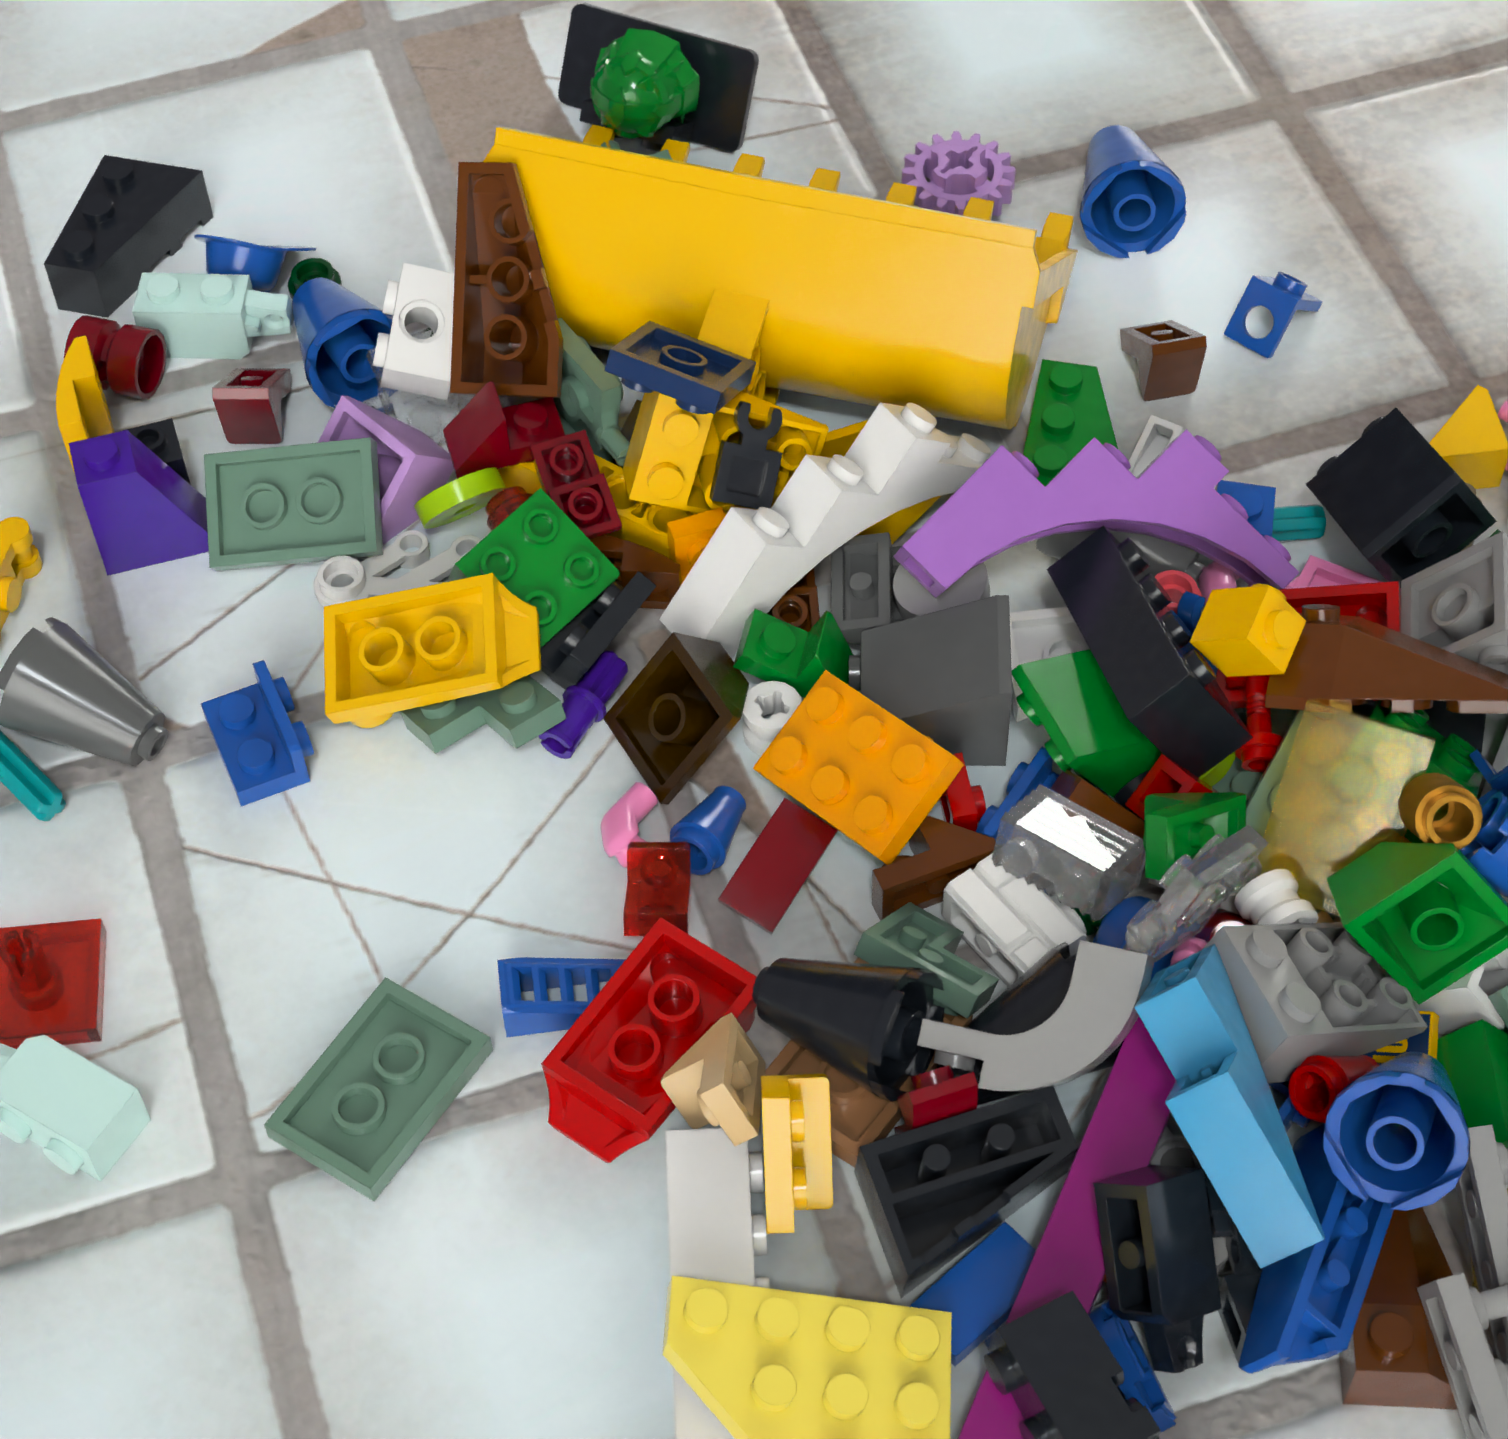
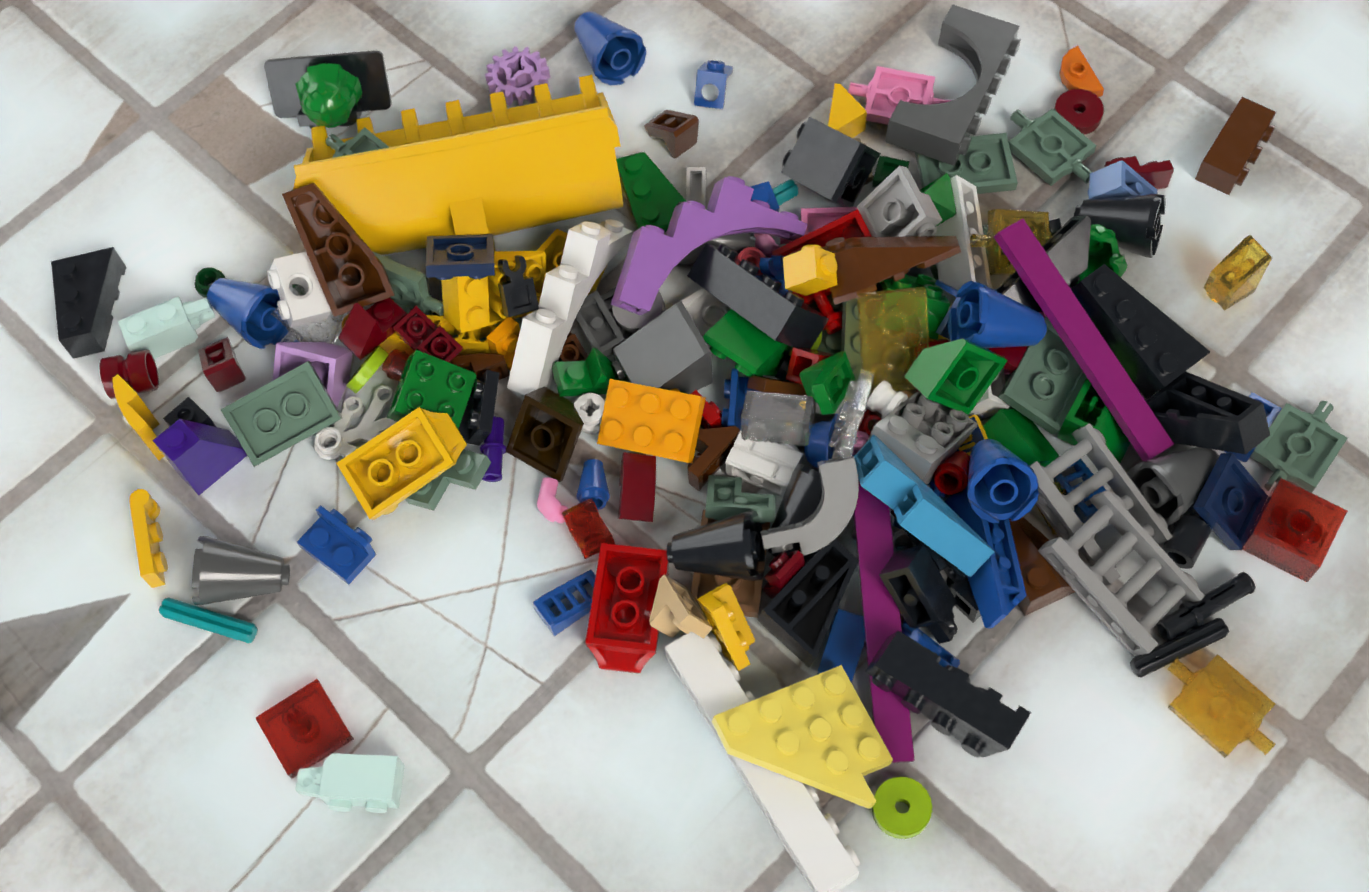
camera: 25 degrees left, 10 degrees up
(245, 258) = (169, 285): blue piece -> none
(379, 1088) = (510, 693): sand green plate -> none
(1456, 820) = (945, 322): pearl gold brick -> none

